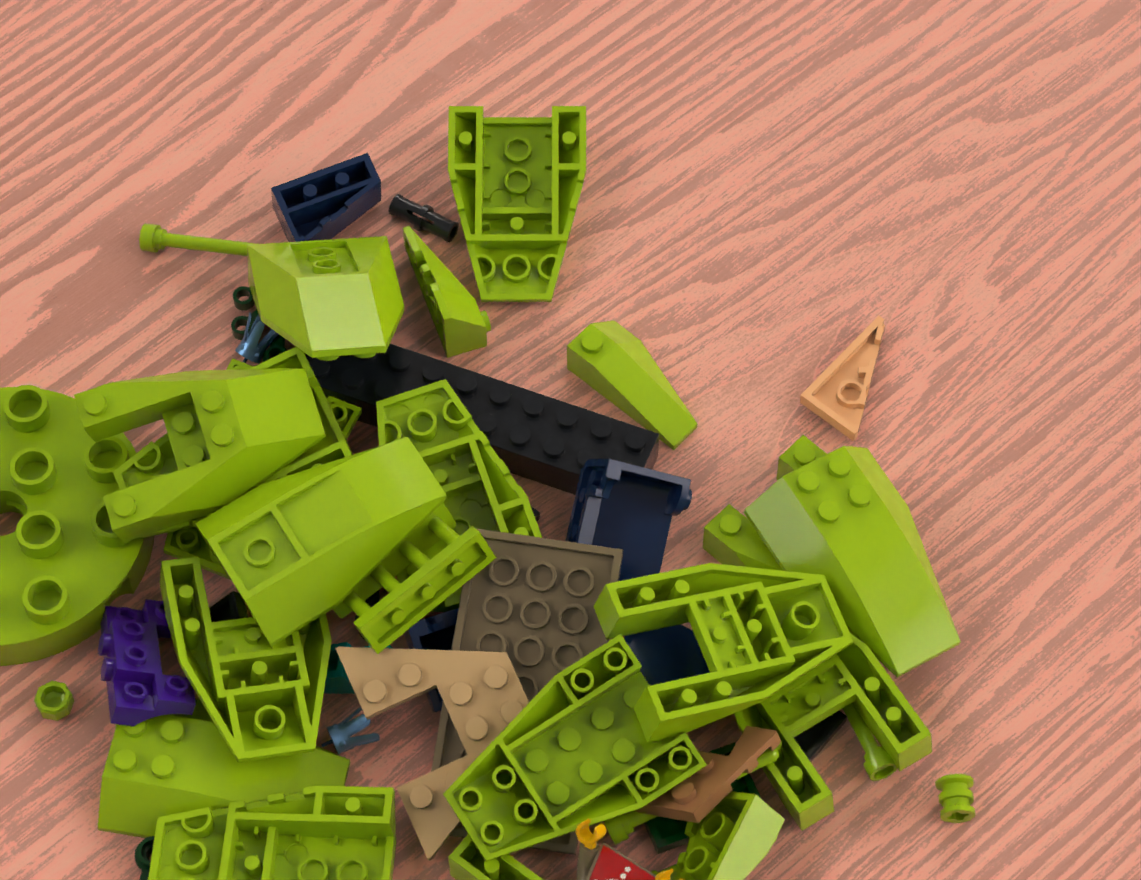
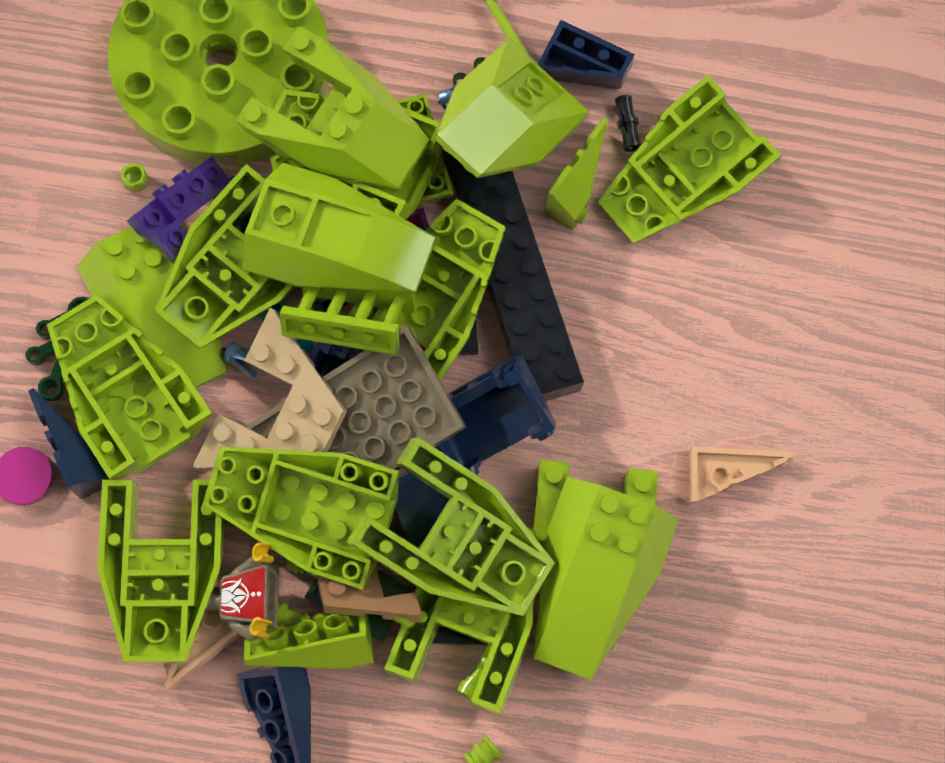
camera: 45 degrees right, 15 degrees up
(628, 377) = (620, 328): lime wedge -> none

